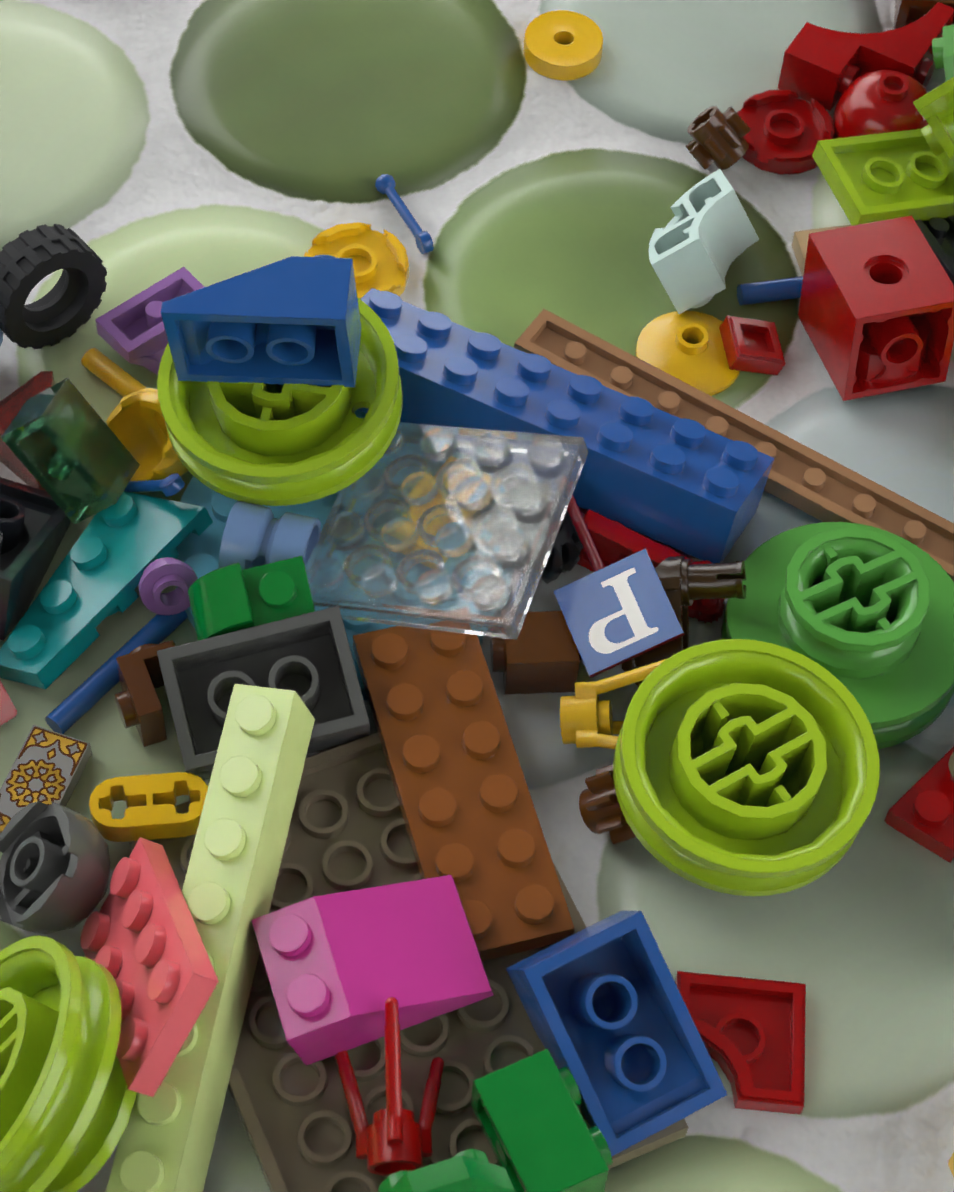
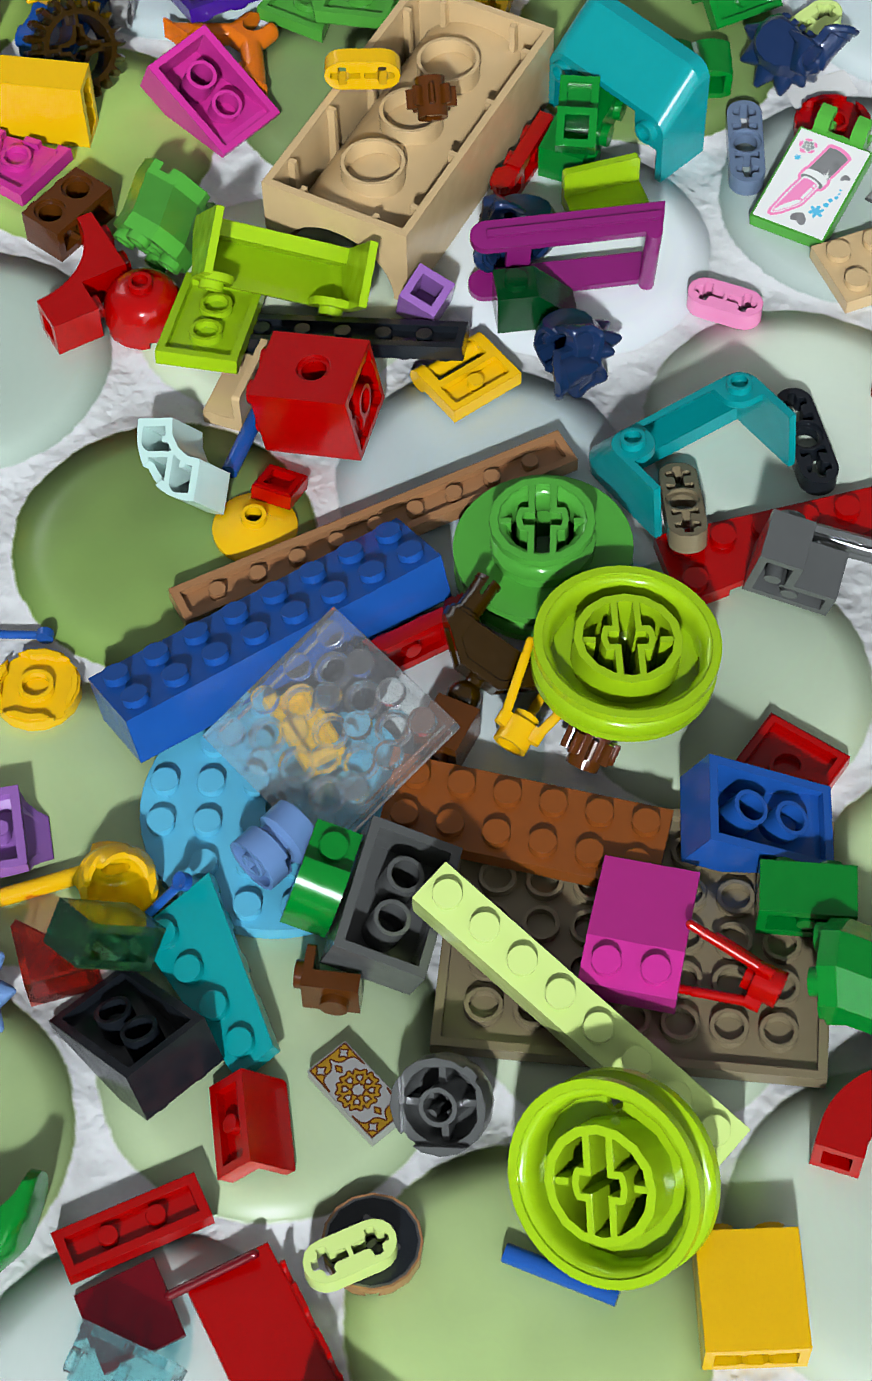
camera: 55 degrees left, 0 degrees up
(107, 675) = (287, 1000): blue bar -> none
(149, 806) = (422, 1013): yellow beam -> none
(156, 960) = (545, 1046): coral plate -> none
(166, 573) = (255, 928): medium lavender plate -> none
(270, 325) = (162, 716): blue slope -> none
(288, 438) = (159, 771): lime wheel -> none
(616, 608) = (461, 664): piece -> none
(718, 138) = (92, 409): reddish brown gear -> none
(784, 131) = (105, 372): red tile -> none

